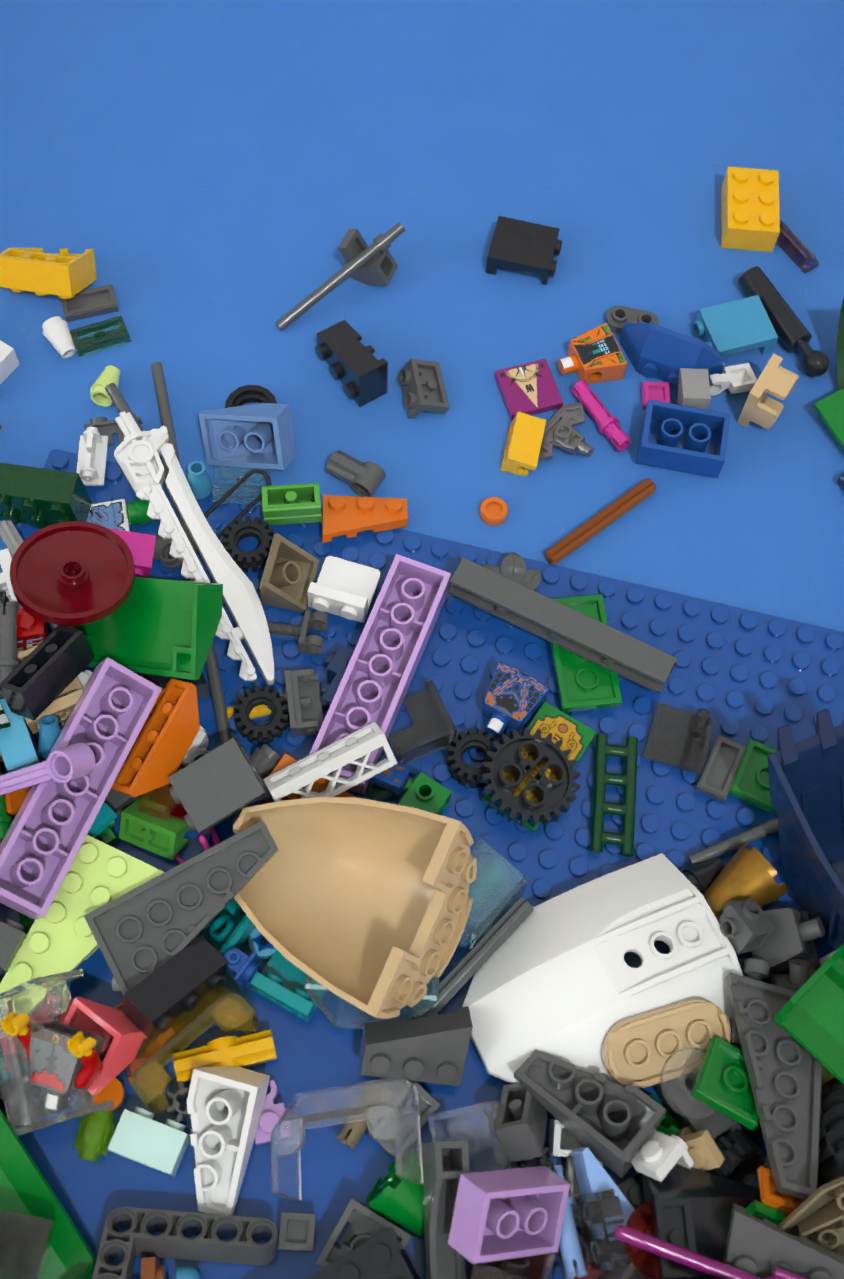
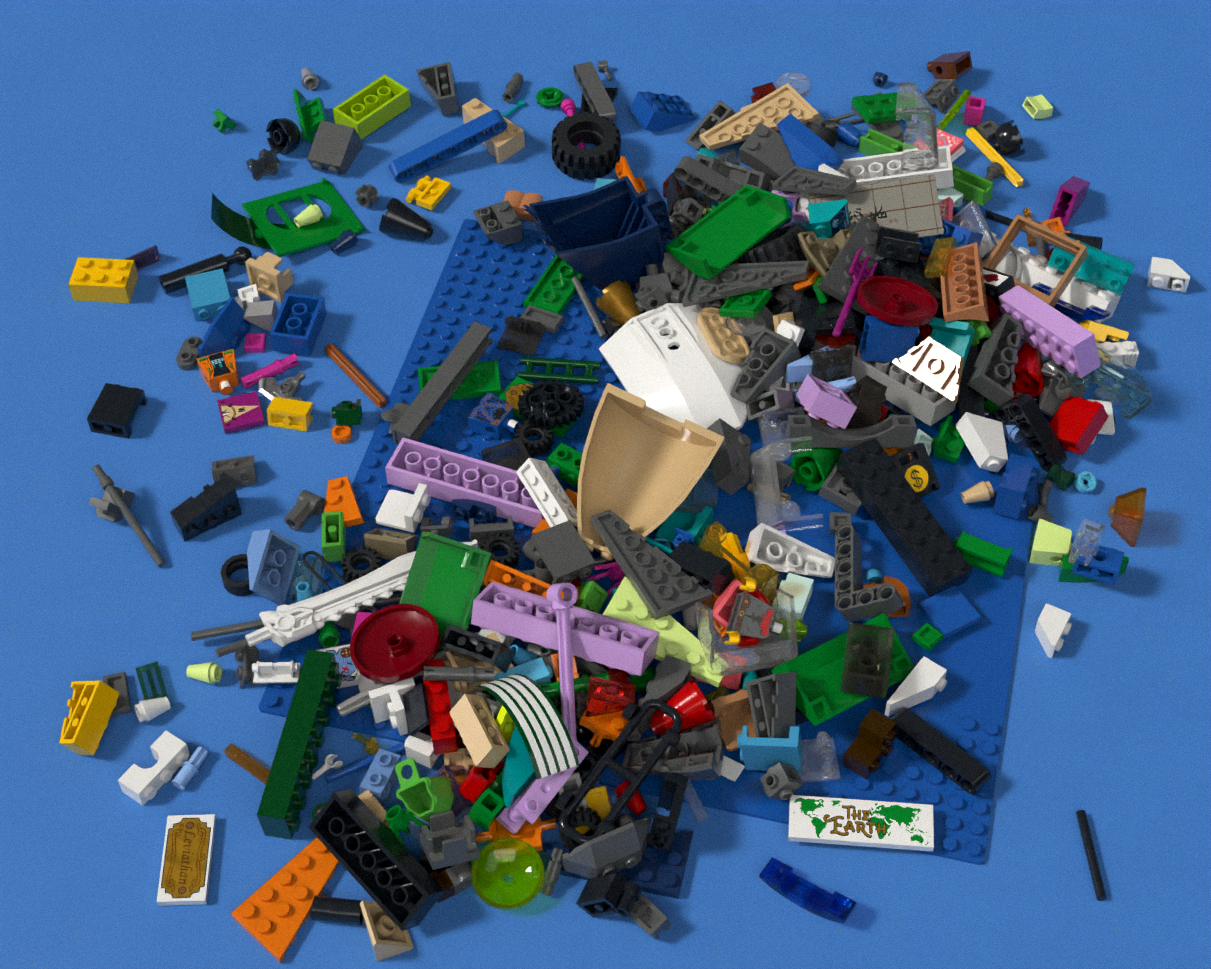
camera: 85 degrees left, 15 degrees down
(521, 513) = (348, 413): none -> dark green brick

